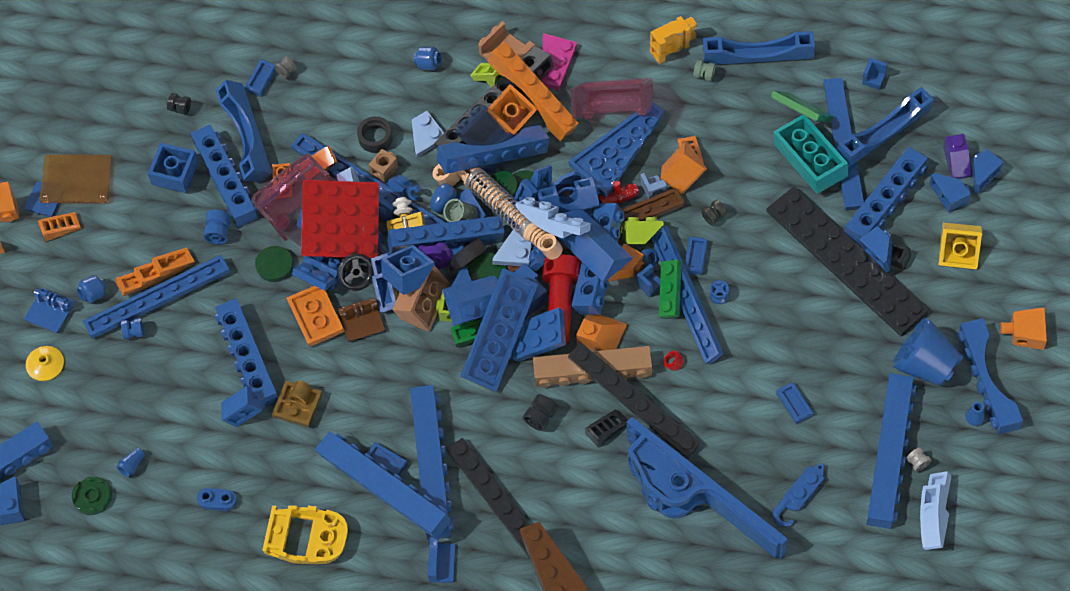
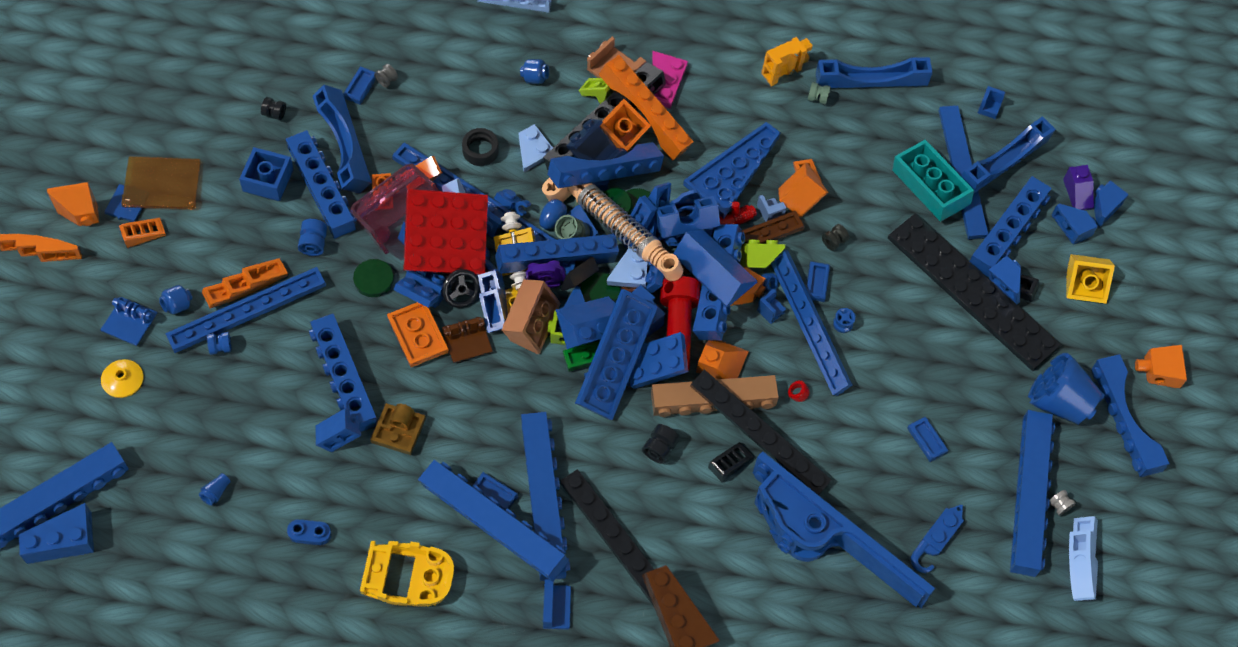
camera: 10 degrees left, 0 degrees up
(91, 495) = (170, 525): dark green tile -> none
(383, 172) = (486, 185): medium nougat brick -> none
(406, 269) = (518, 287): blue slope -> none
(547, 218) = (668, 237): light blue slope -> none
(612, 96) = (728, 116): clear pink windscreen -> none
(670, 289) = (793, 315): green plate -> none
(802, 106) = (921, 132): green tile -> none
(975, 414) = (1118, 455): blue cone -> none

